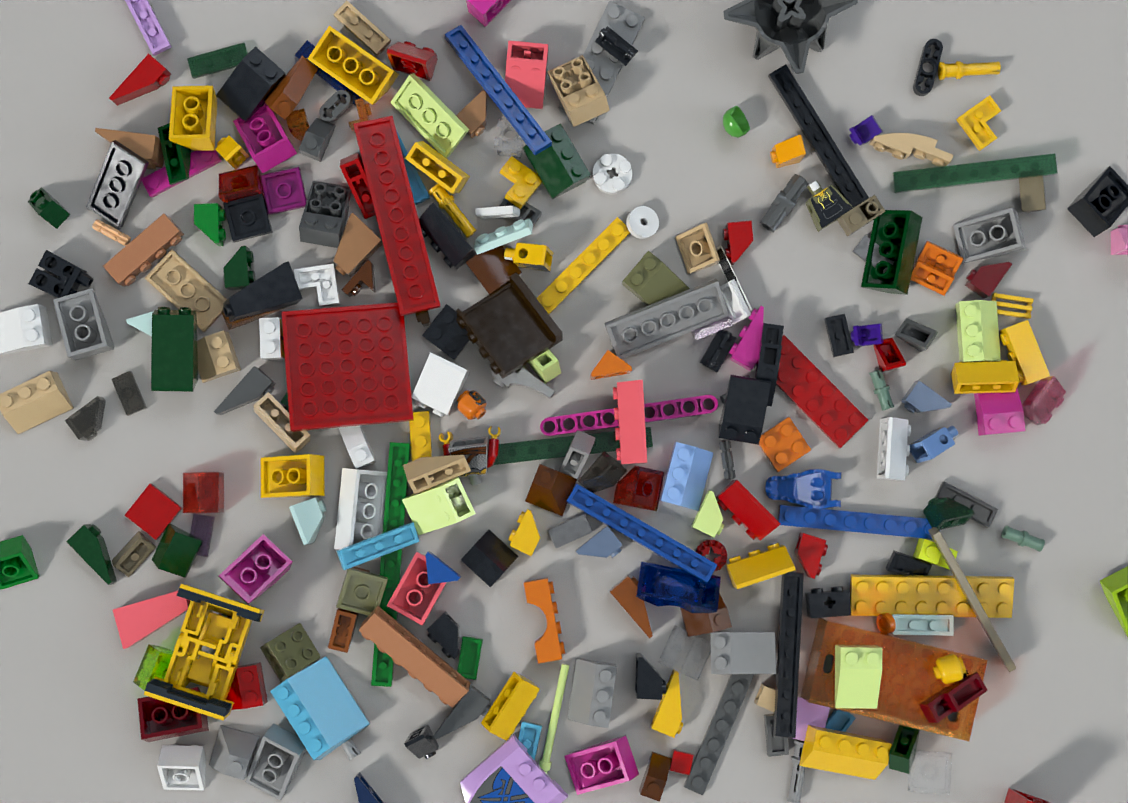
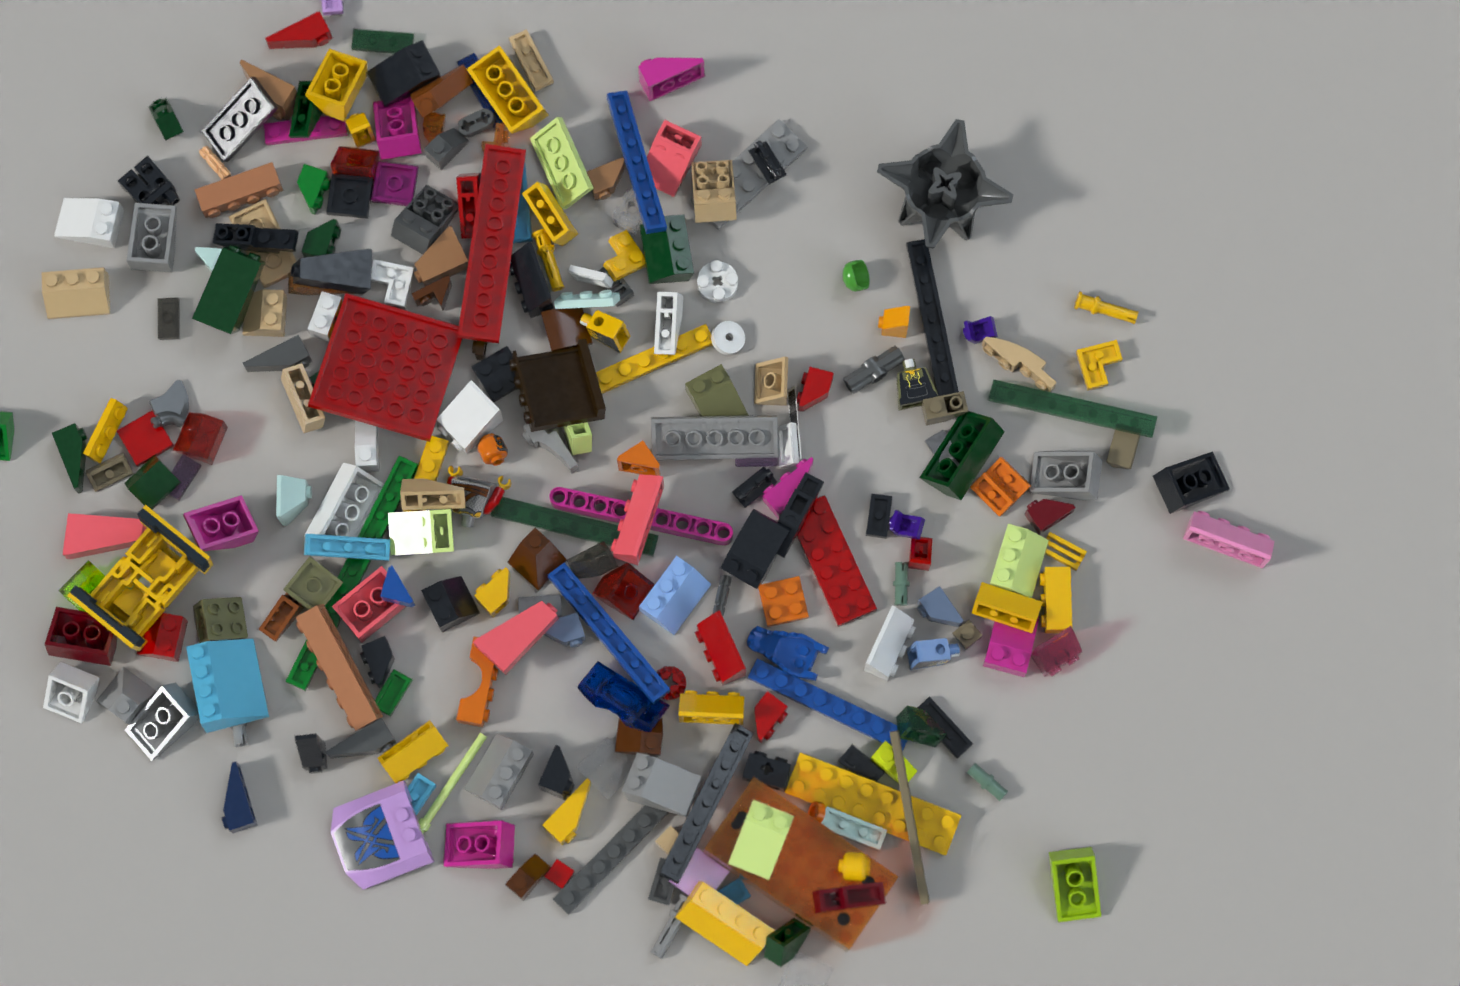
camera: 25 degrees right, 10 degrees down
(88, 419) = (120, 327): clear smoke slope -> none
(114, 519) = (105, 430): none -> yellow plate
(165, 474) = (171, 406): none -> dark grey arm
(177, 291) = (255, 239): none -> black slope
(292, 476) = (292, 453): yellow slope -> none
(410, 59) = (564, 104): red slope -> none
(562, 572) = (515, 637): none -> coral slope
(577, 454) = (575, 532): light grey slope -> none
(584, 230) = (668, 322): none -> white slope
(625, 594) = (572, 698): dark orange slope -> none
(709, 516) = (680, 643): yellowish green slope -> none
(916, 334) = (956, 543): dark grey slope -> none
(926, 53) = (1053, 300): black beam -> none
(956, 413) = (967, 634): none -> dark tan plate

